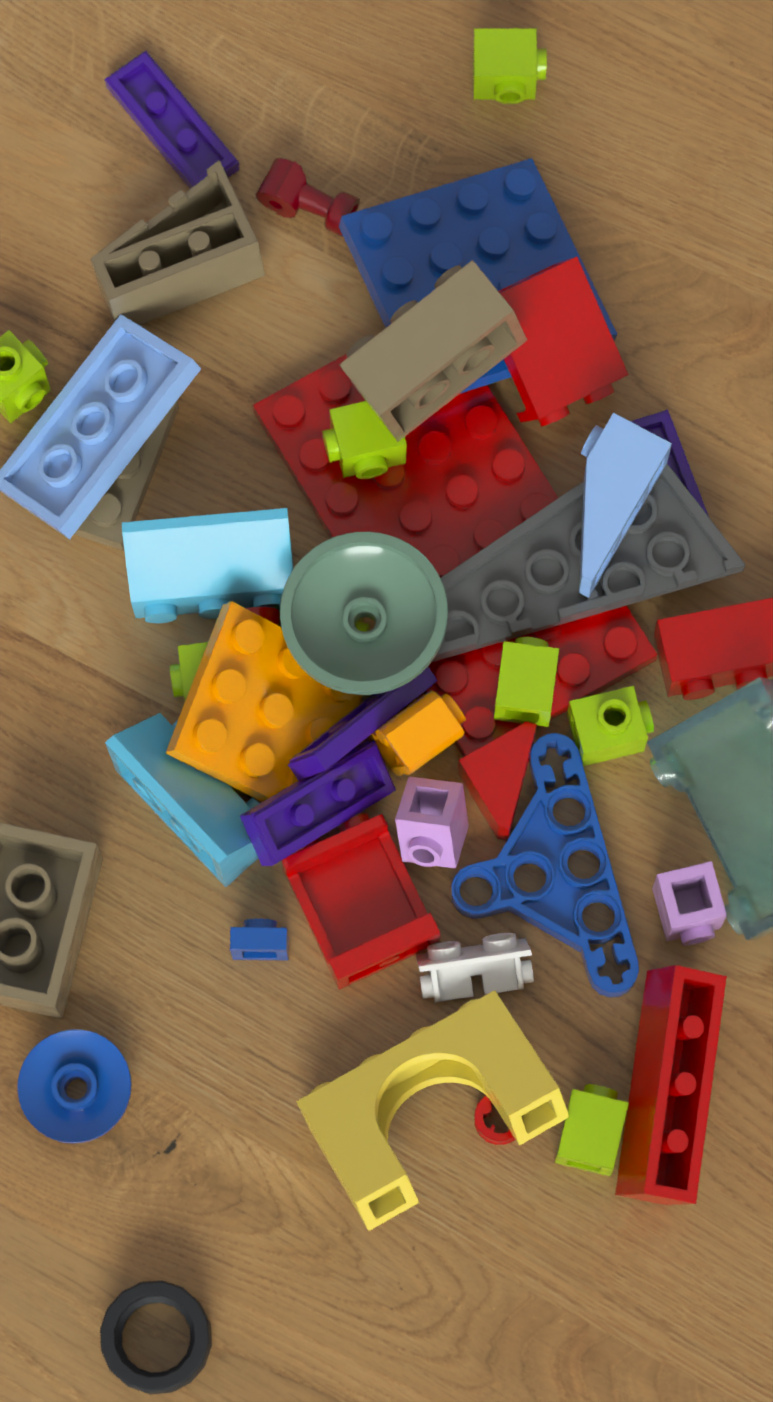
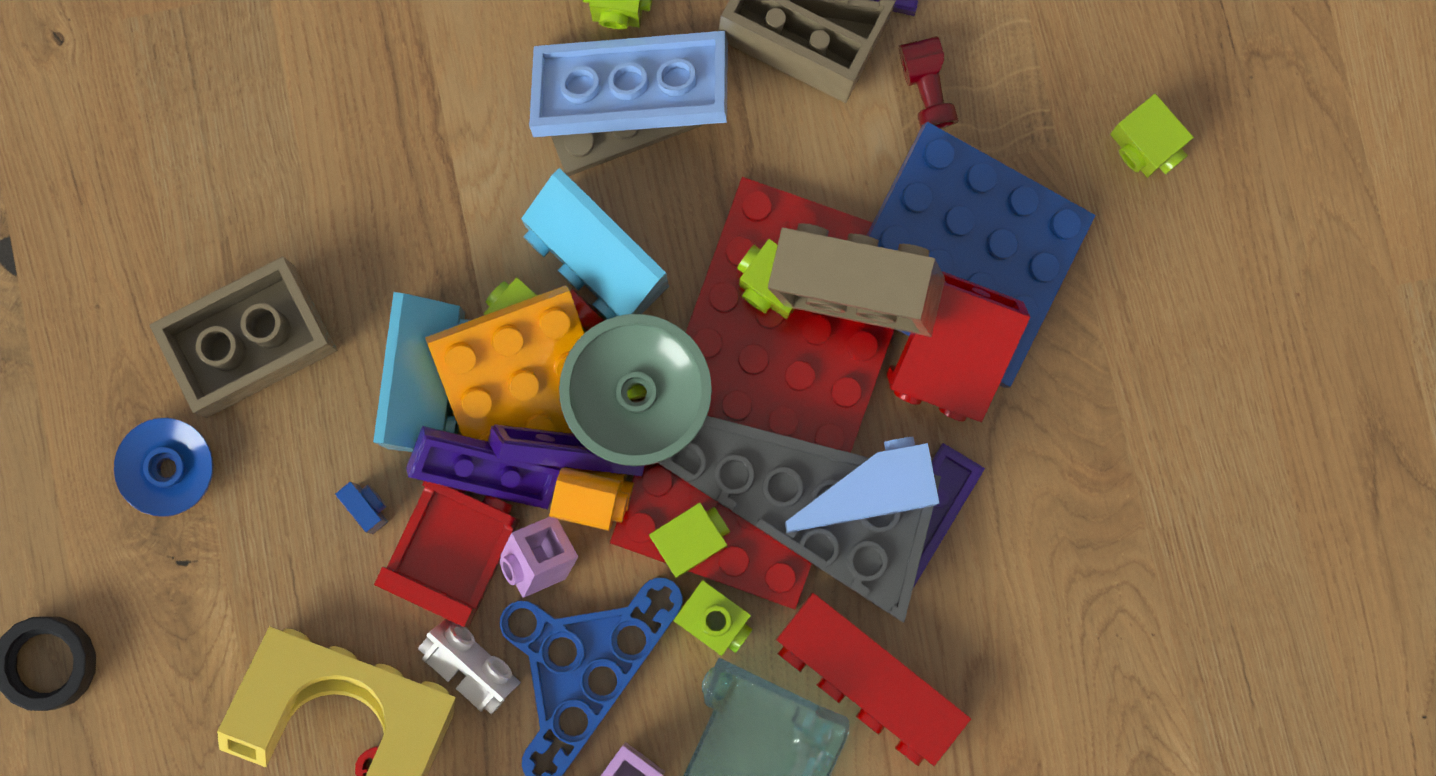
camera: 50 degrees right, 10 degrees up
(497, 774) = (613, 572): red slope -> none

